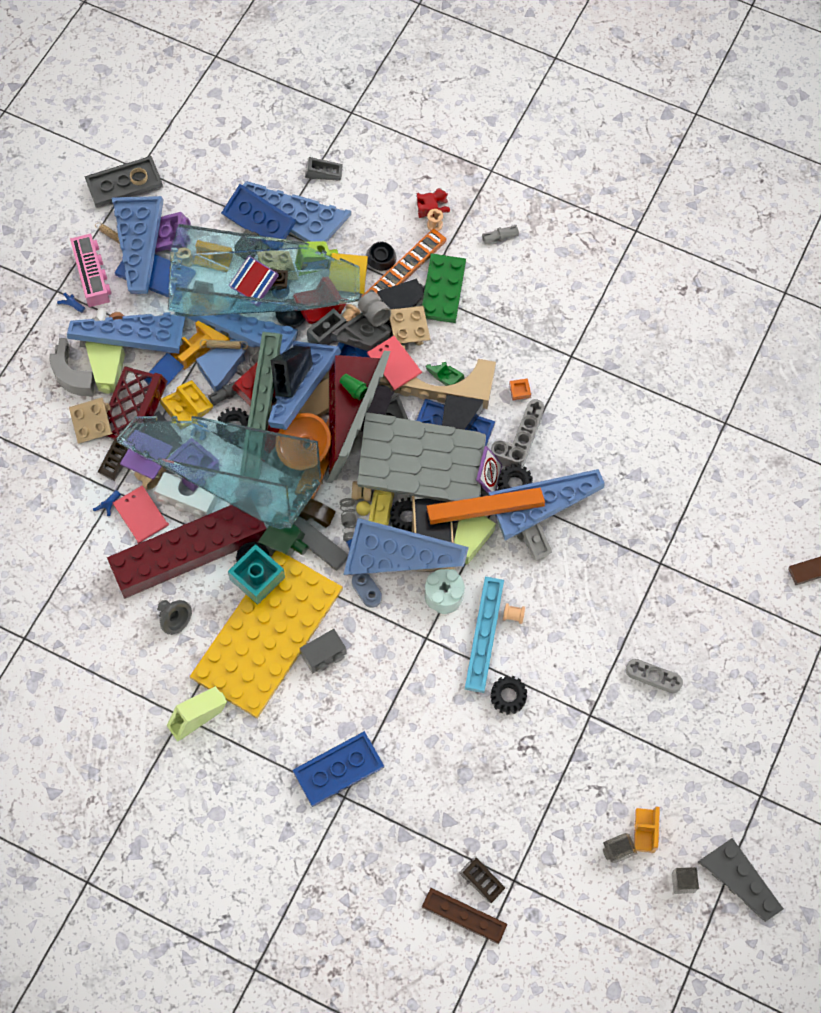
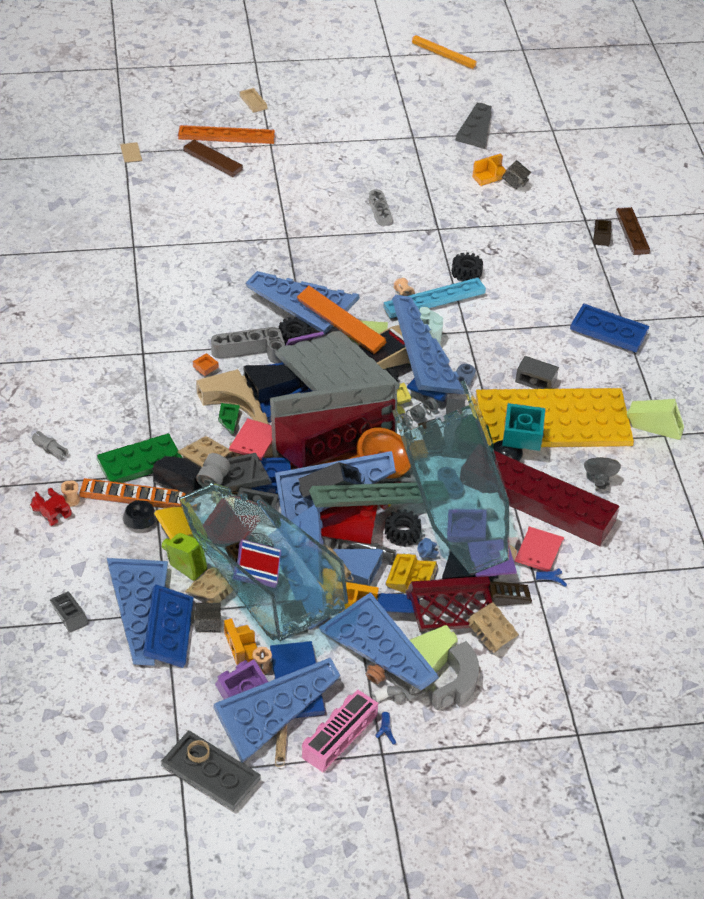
camera: 125 degrees left, 20 degrees down
(355, 387) = (322, 407): green cone -> none
(685, 880) = (505, 142): clear smoke brick -> none

